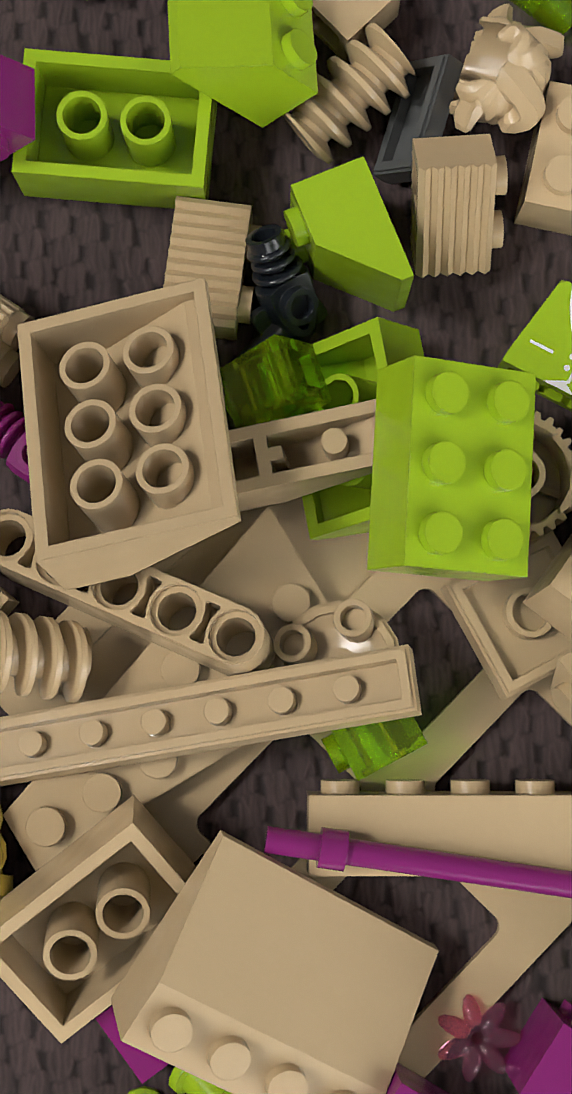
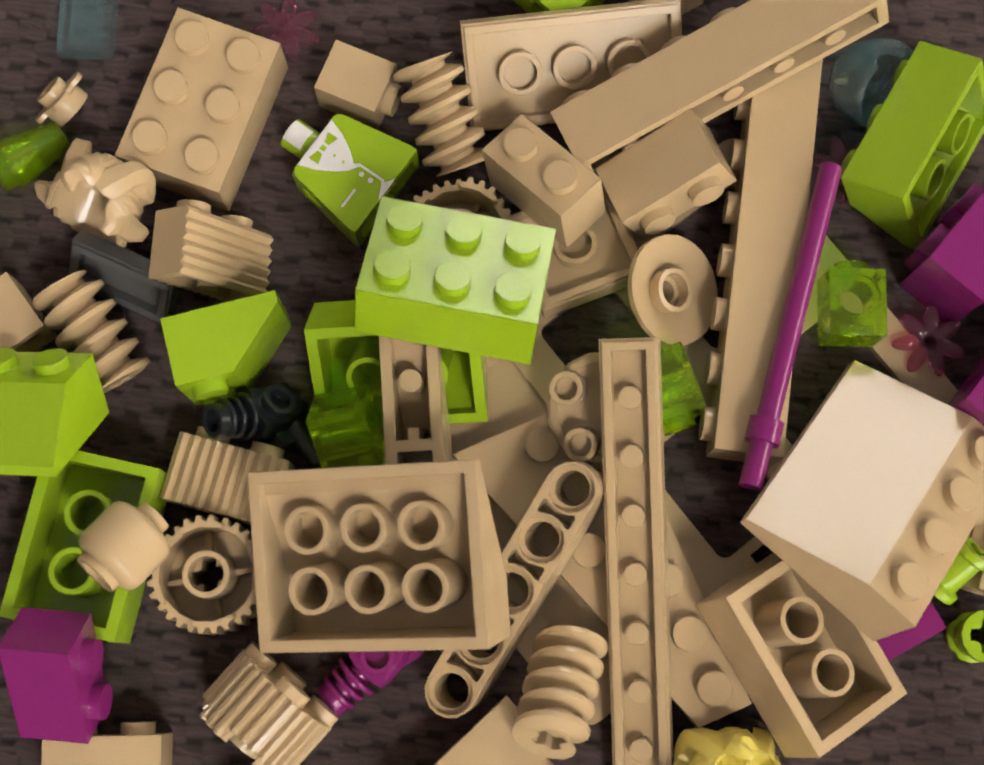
camera: 85 degrees left, 5 degrees down
(92, 232) = (179, 583): none -> tan brick
(109, 160) = (124, 546): none -> tan head
(474, 933) = (845, 328): none -> clear neon green brick
(491, 748) = (672, 289): none -> tan dish

